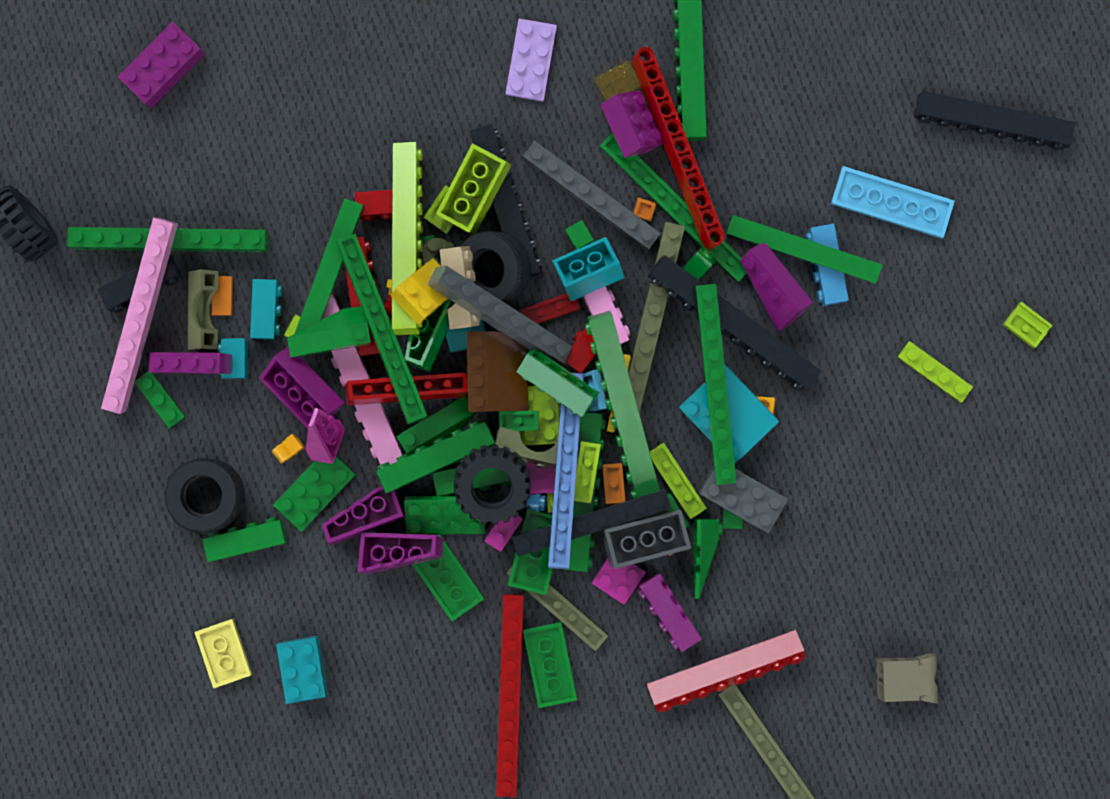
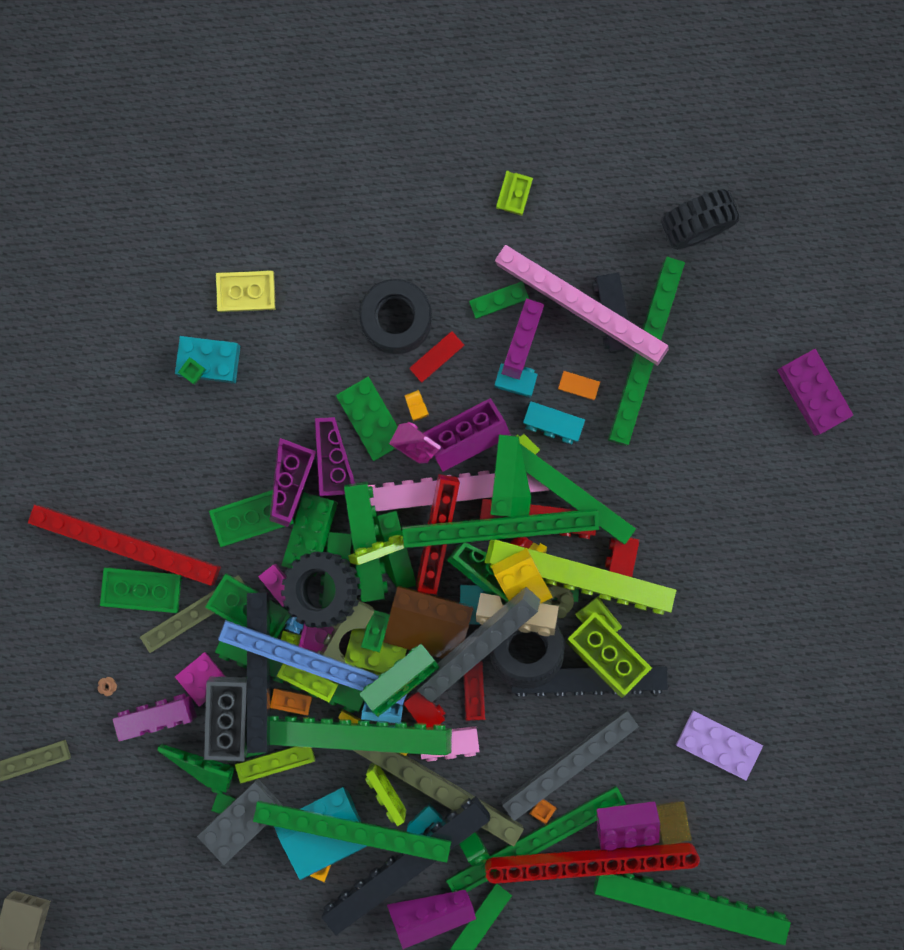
camera: 110 degrees right, 0 degrees up
(48, 415) = (514, 193): none -> lime plate
(201, 289) = (590, 368): olive arch -> none
(234, 443) = (436, 356): none -> red tile
(244, 540) = (343, 341): green brick -> none
(316, 679) = (191, 370): none -> green plate
(437, 441) = (377, 550): none -> lime plate
(579, 235) = (534, 740): green brick -> none
(588, 269) = (500, 741): teal brick -> none
(648, 668) = (107, 681): none -> nougat plate
(671, 363) = (386, 794): none -> lime plate
(686, 320) = (424, 819): none -> teal leg
(726, 671) = (81, 755): brick -> none

